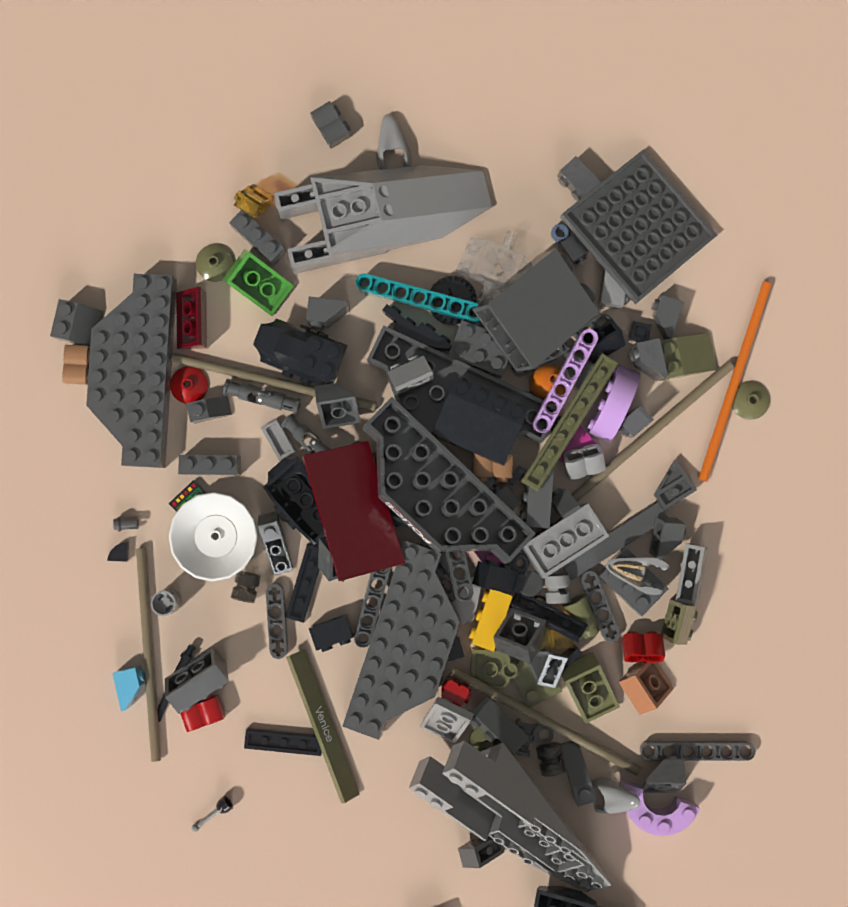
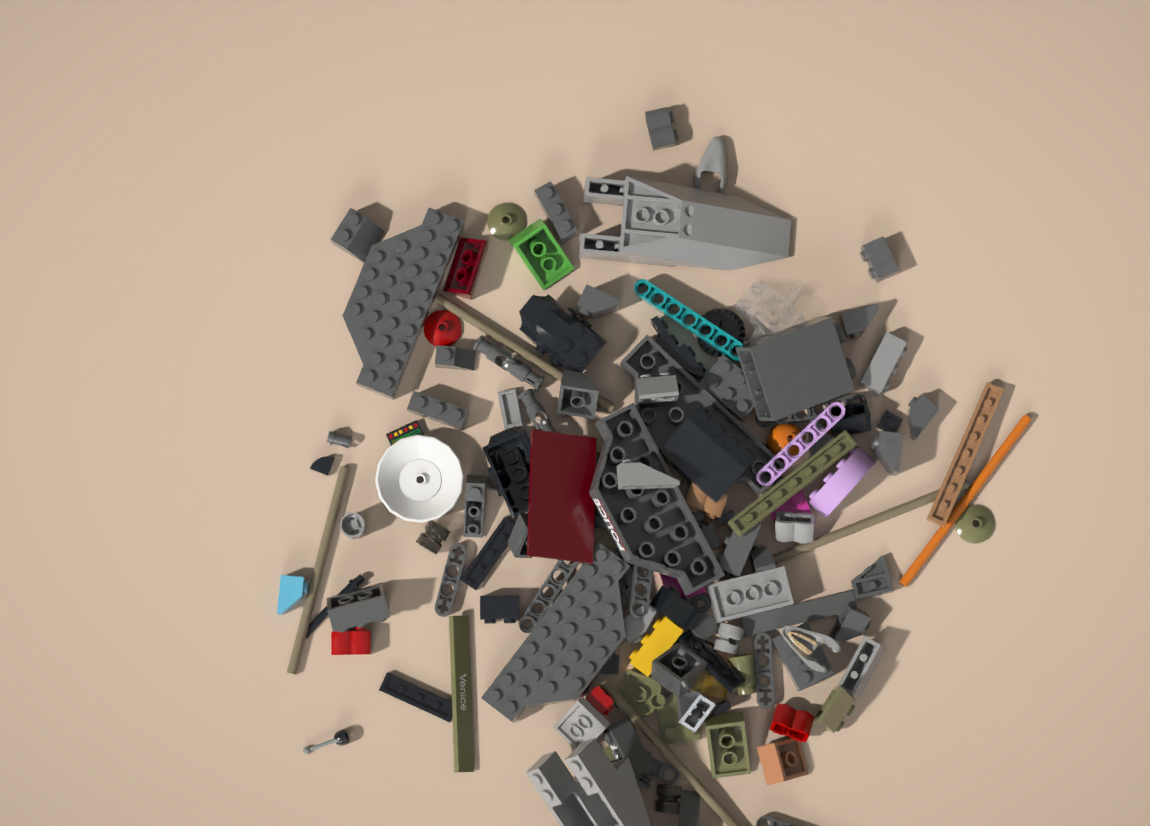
camera: 15 degrees right, 5 degrees down
(76, 364) = (344, 274): medium nougat brick -> none
(253, 200) = (564, 176): clear yellow brick -> none
(424, 466) = (640, 476): none -> light grey slope
(560, 227) = (849, 299): sand blue plate -> none
(635, 421) = (854, 506): dark grey slope -> none
(638, 226) = (920, 322): dark grey plate -> none
(688, 355) = (925, 459): olive slope -> none
(722, 338) = (965, 454): none -> medium nougat plate

